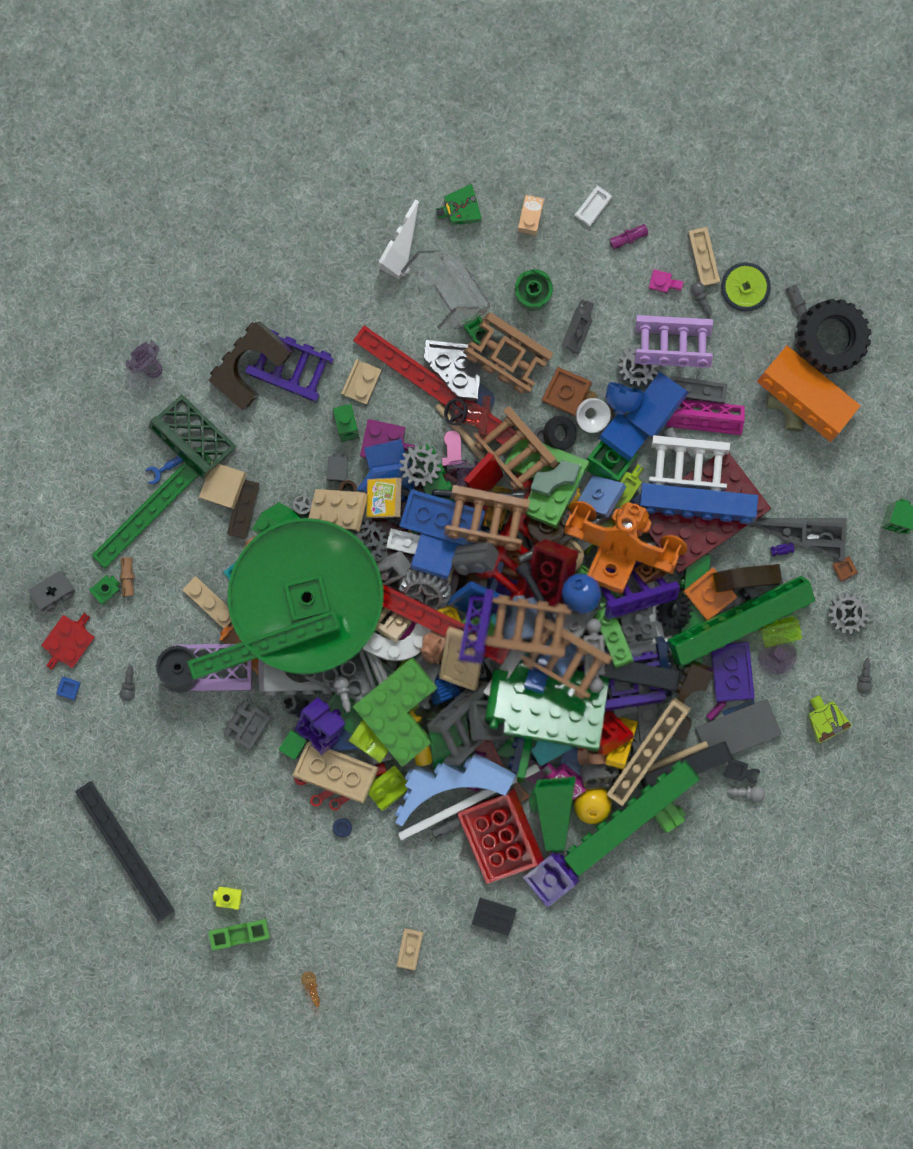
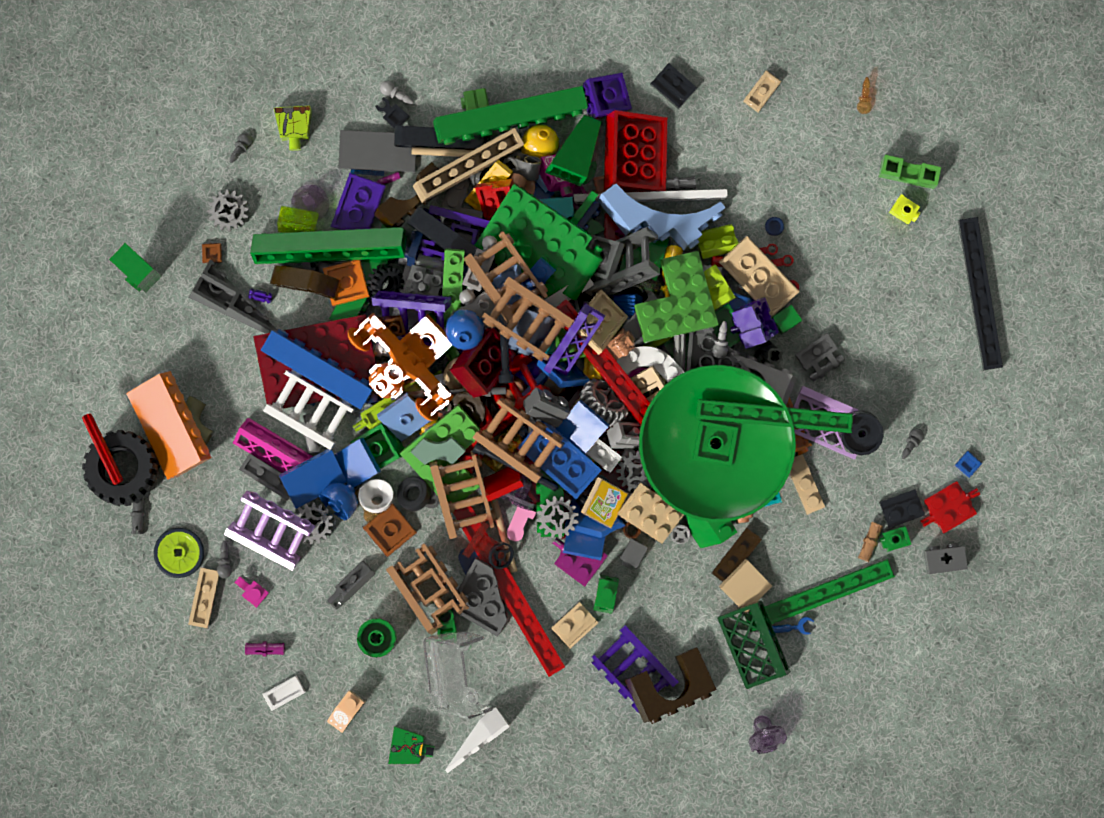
camera: 155 degrees left, 0 degrees up
(111, 620) = (902, 508): none -> black plate
(857, 342) = (102, 449): none -> red axle

